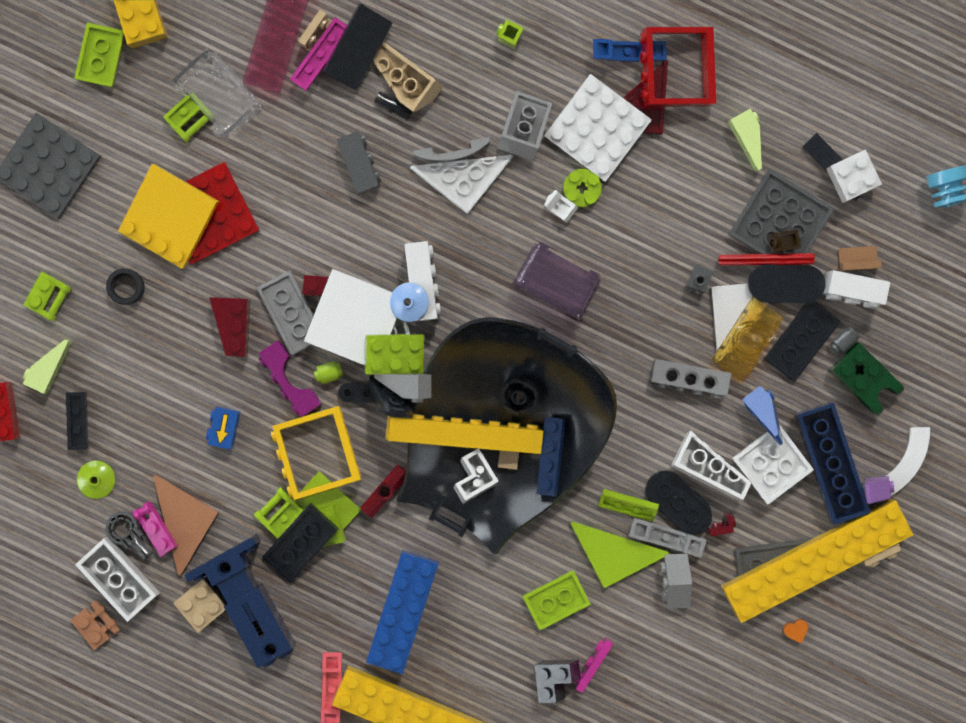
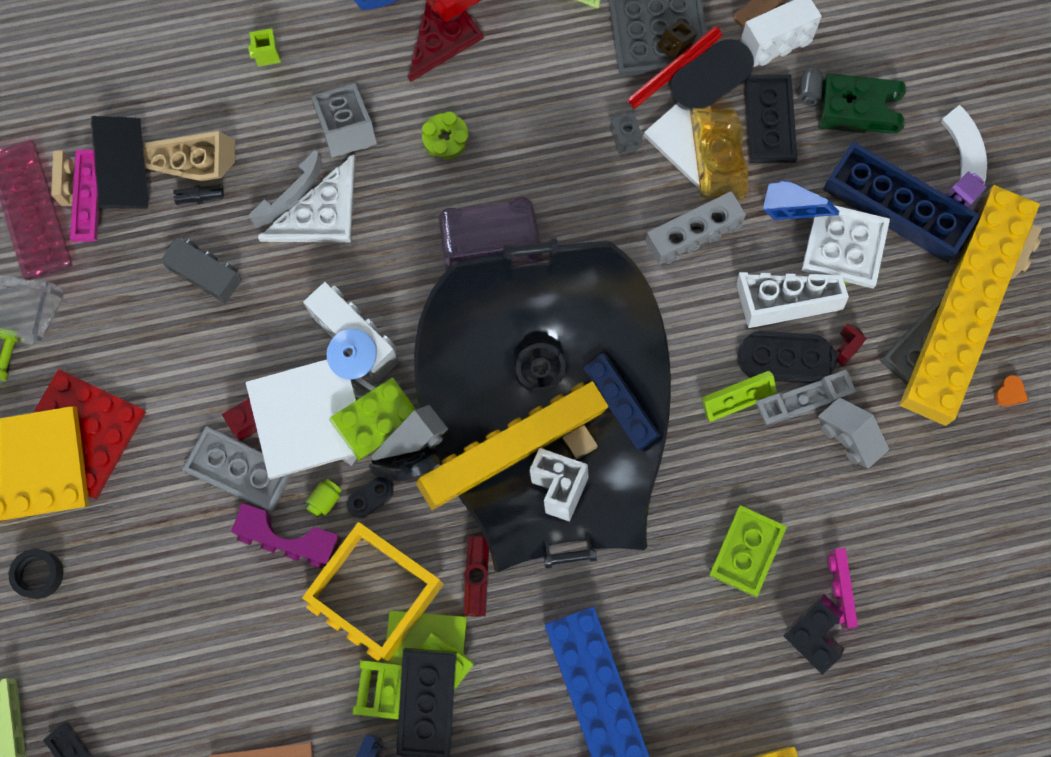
camera: 35 degrees left, 15 degrees down
(223, 427) = (249, 643): blue brick -> none
(233, 322) = (182, 523): dark red wedge -> none
(560, 206) = (436, 165): white bracket -> none
(597, 127) = (416, 71): white plate -> none
(614, 555) = (768, 459): lime tile -> none

